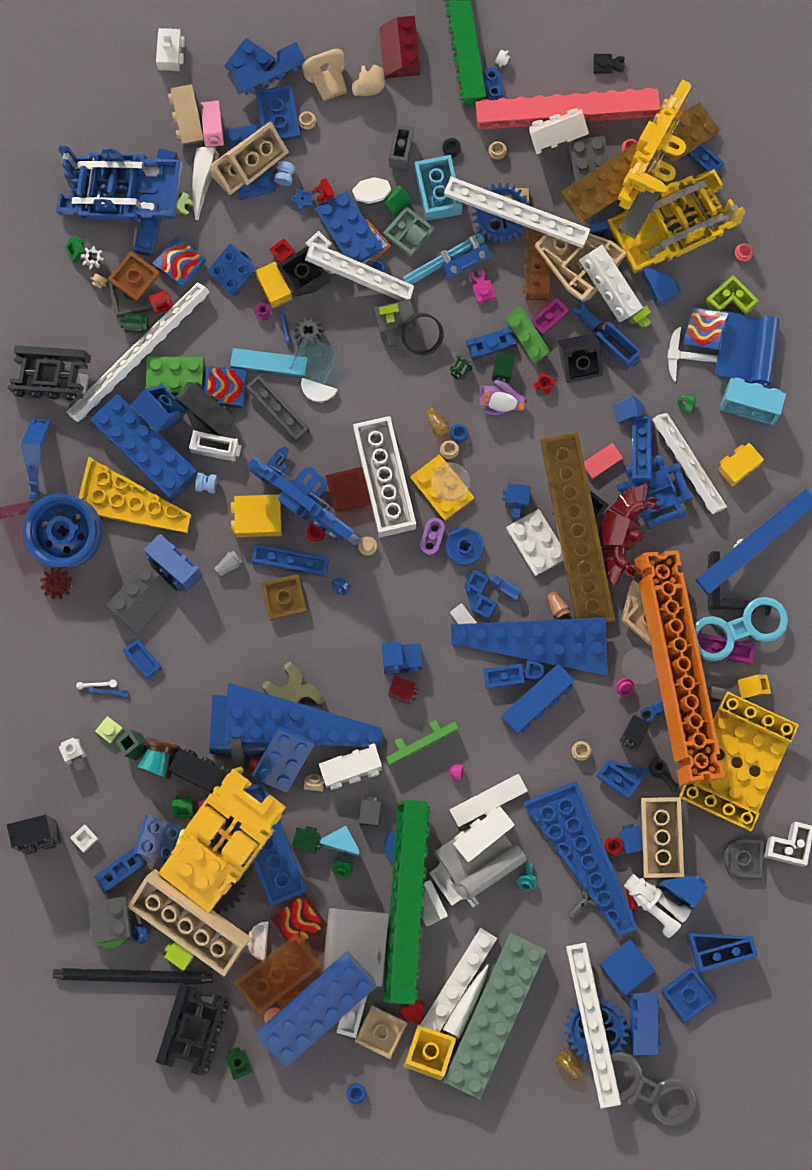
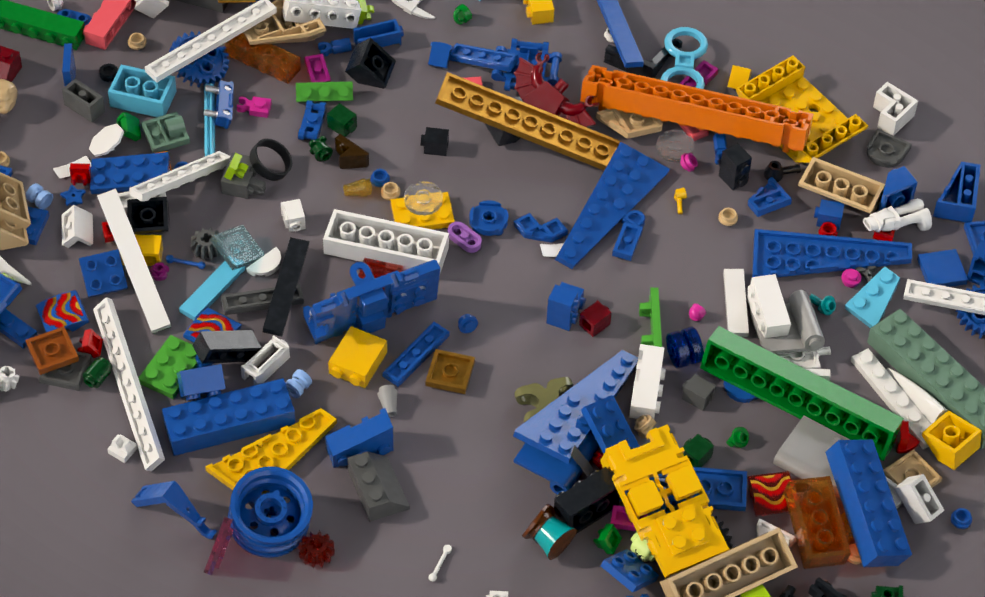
camera: 65 degrees left, 25 degrees down
(51, 358) = (86, 448): black fence -> none
(99, 281) = (32, 384): tan plate -> none
(109, 730) = (493, 571): yellowish green plate -> none
(124, 693) = (463, 544): blue hinge -> none
(132, 744) = (522, 549): dark green brick -> none
(142, 659) = (438, 513): blue tile -> none
(252, 286) = (134, 261): none -> white tile
(271, 222) = (77, 226): none -> white panel
(296, 420) = (286, 287): none -> black tile
(315, 534) = (402, 321): red plate -> none
(335, 181) = (64, 171): none -> white sticker
(341, 841) = (718, 417): medium azure slope -> none
(346, 1050) = (919, 499): none -> white brick
(367, 546) = (444, 289): tan plate -> none
(376, 385) = (293, 215): none -> white window
(406, 780) = (684, 347): none -> clear blue wheel
(425, 115) = (69, 66): none -> blue tile
(468, 398) = (350, 154): none -> dark brown slope
(500, 398) = (370, 131): animal -> none
(506, 588) = (546, 205): blue bar -> none
(516, 497) = (468, 161): blue brick -> none
(524, 458) = (435, 141): none -> black brick
(536, 542) = (518, 168): white plate -> none
(537, 699) = (664, 225): blue brick -> none
(549, 383) = (375, 100): red plate -> none
(556, 920) = (874, 297): none -> medium azure wing
(559, 608) = (586, 176): nougat cone -> none
(571, 889) = (851, 278): none -> dark pink plate
(583, 696) = (678, 196): none -> yellow hand
(689, 463) = (506, 36): white plate -> none

